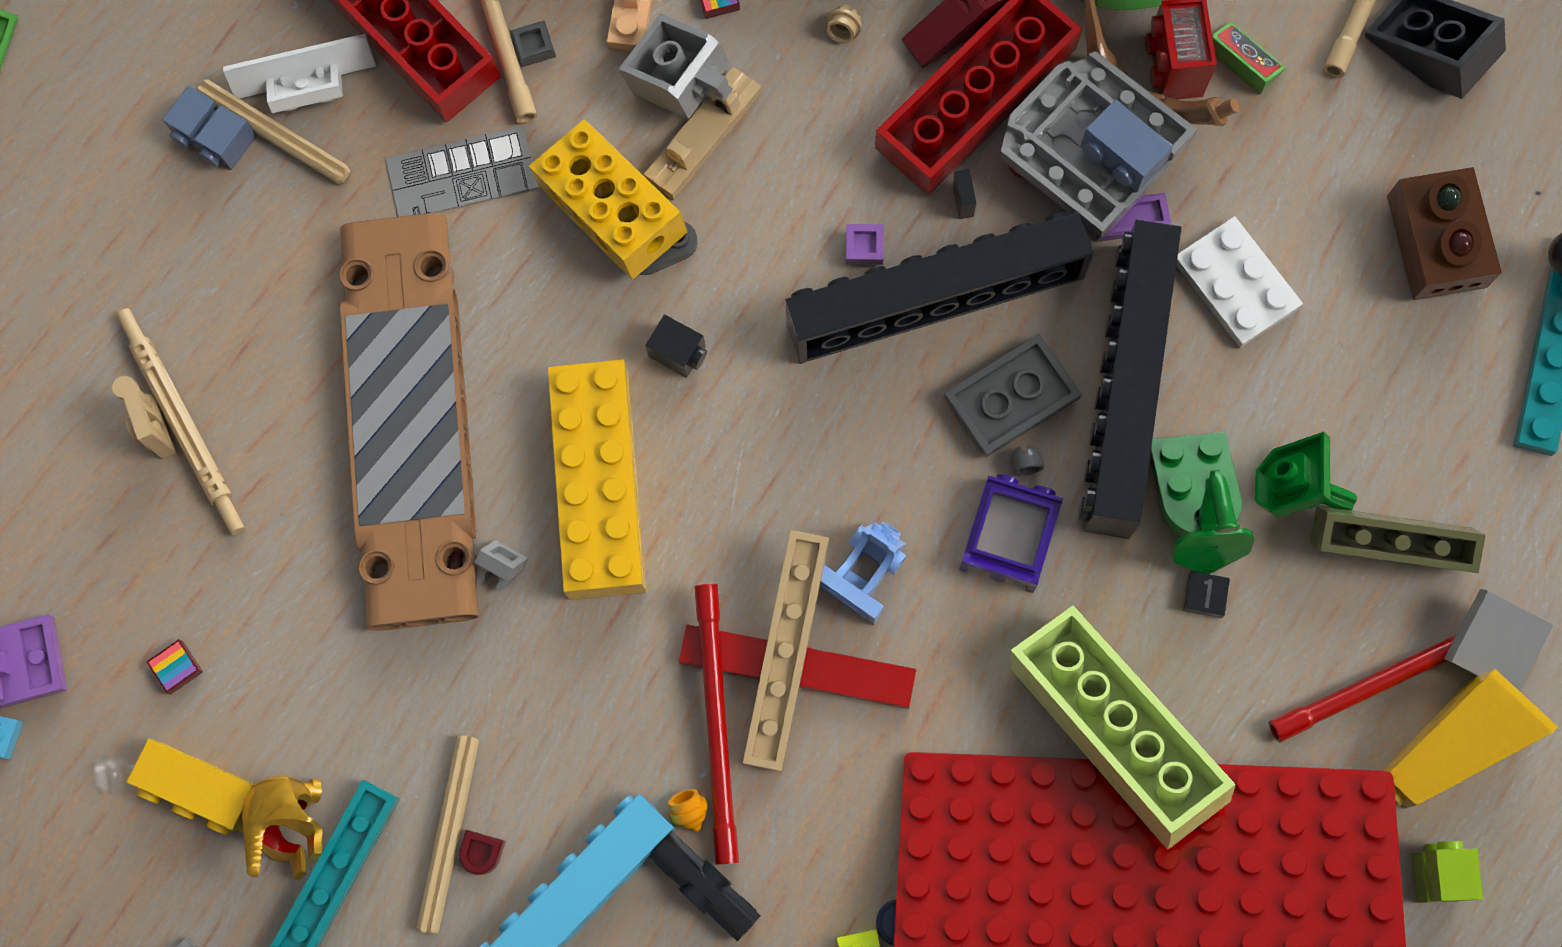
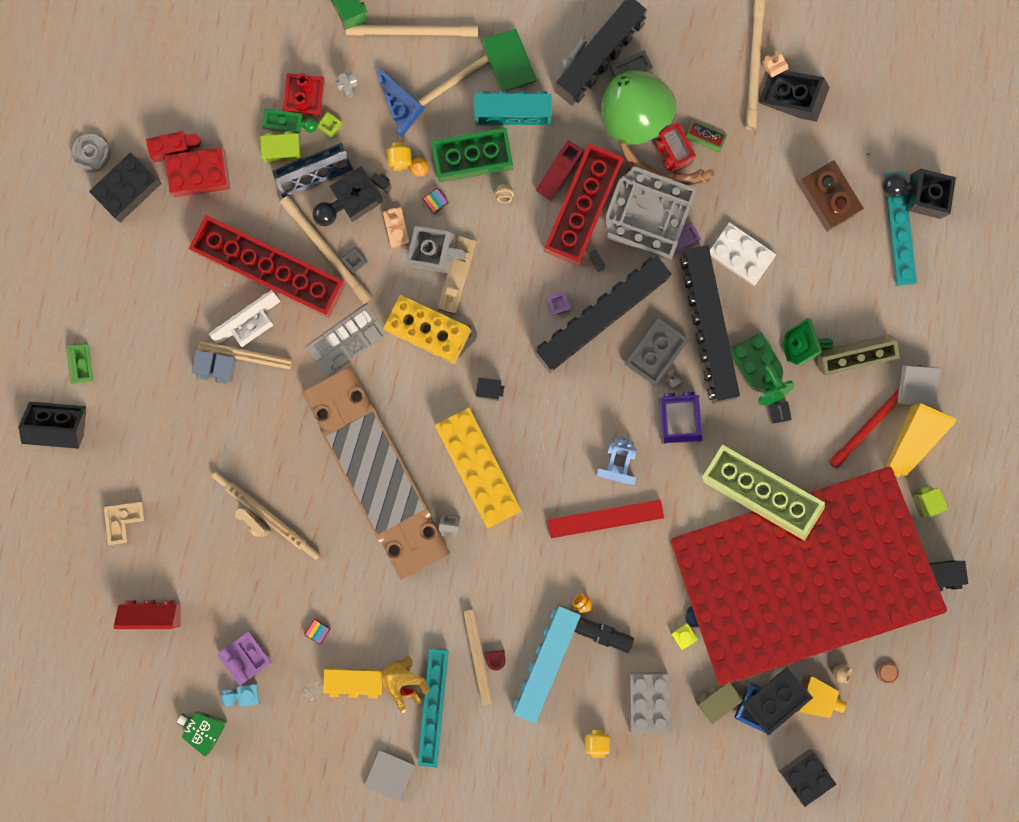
camera: 25 degrees left, 10 degrees up
(724, 827) = (602, 605): red piece -> none
(786, 650) = (599, 514): tan plate -> none
(1125, 146) = (666, 211): sand blue brick -> none

